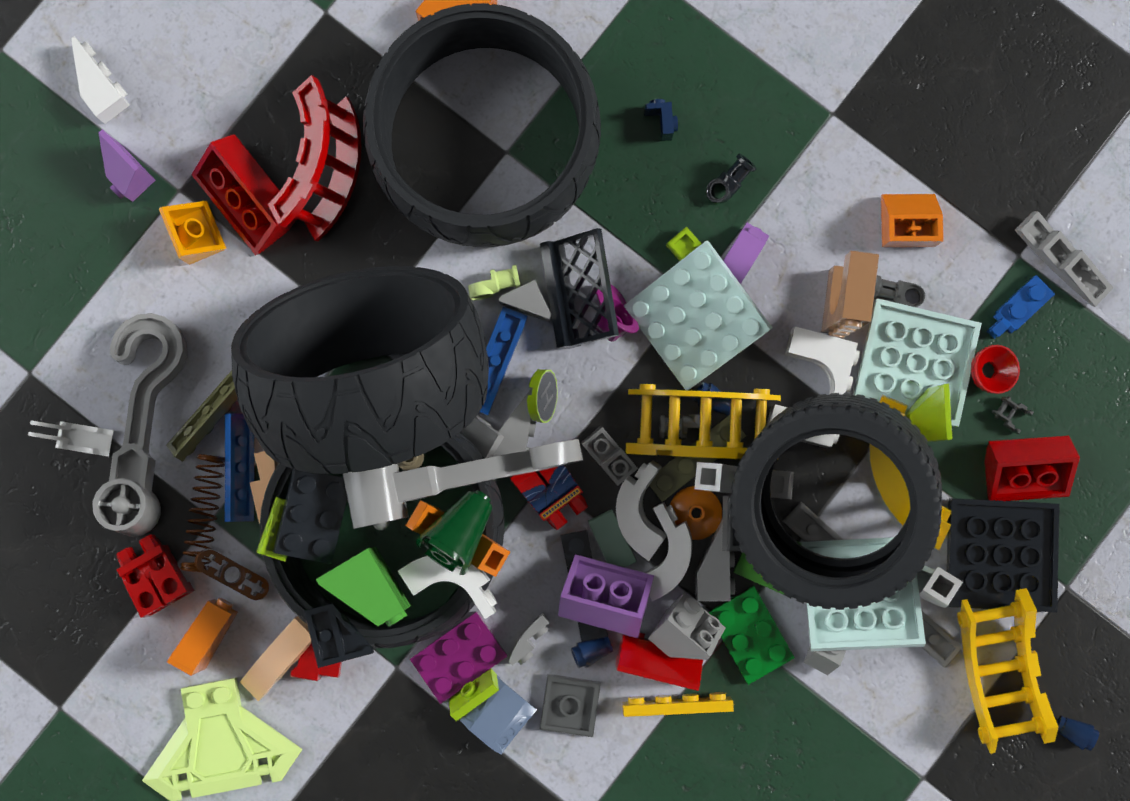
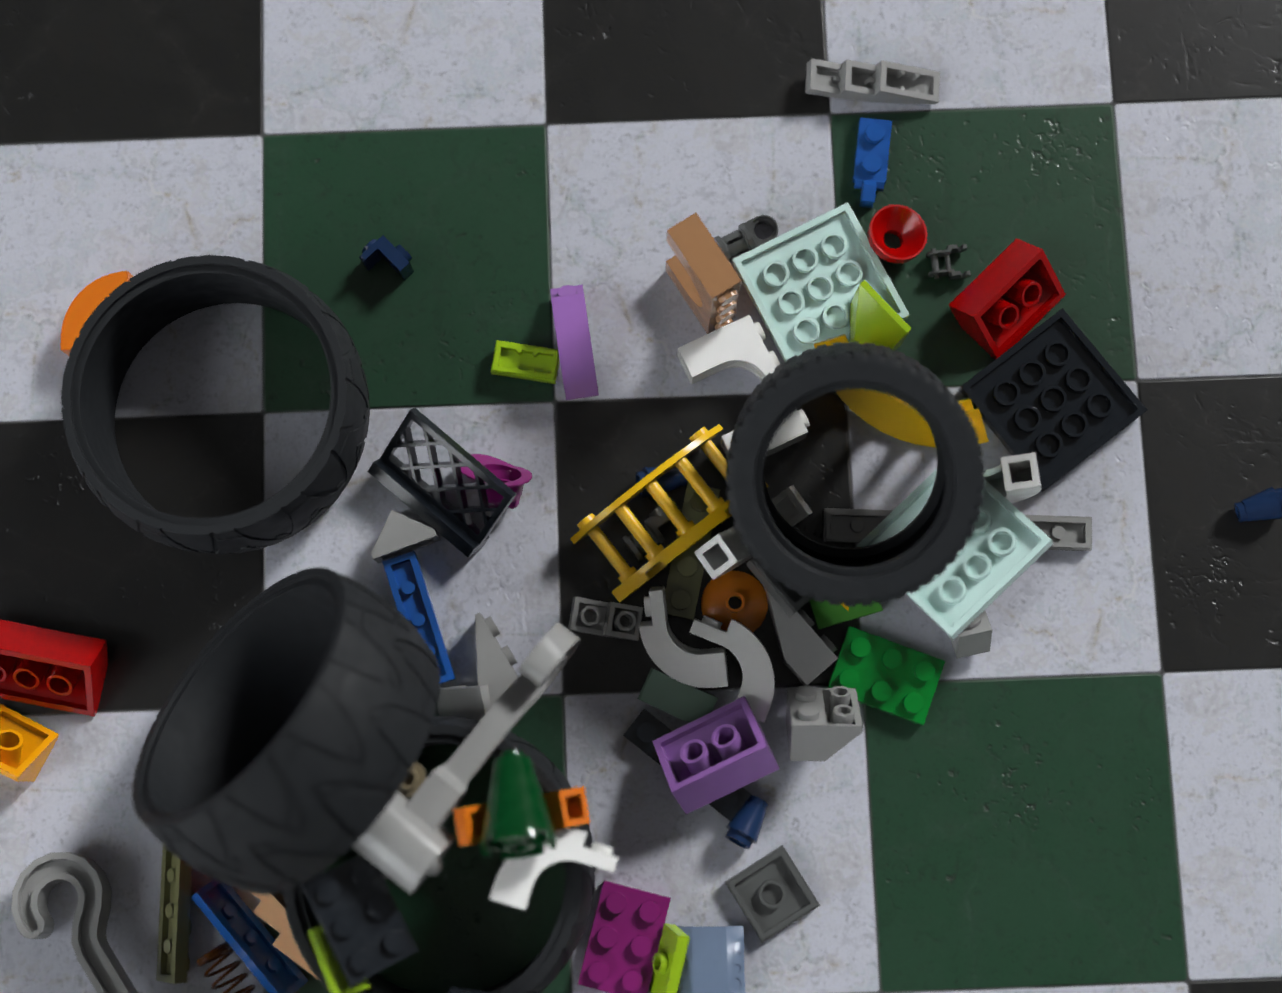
camera: 40 degrees left, 5 degrees down
(312, 156) = (44, 527): red fence -> none
(367, 587) = (472, 941): bright green slope -> none
(499, 280) = (358, 539): yellowish green connector -> none
(524, 646) = (679, 875): light grey slope -> none
(543, 400) = (495, 615): tile -> none
(554, 496) = (585, 704): hips -> none
(646, 660) = (810, 781): red slope -> none
(687, 705) = (863, 812): yellow plate -> none
(697, 316) = (577, 414): light aqua plate -> none
(731, 179) = (501, 261): black connector -> none
(911, 220) = (703, 162): orange slope -> none
(1026, 662) = (1160, 481): yellow fence -> none

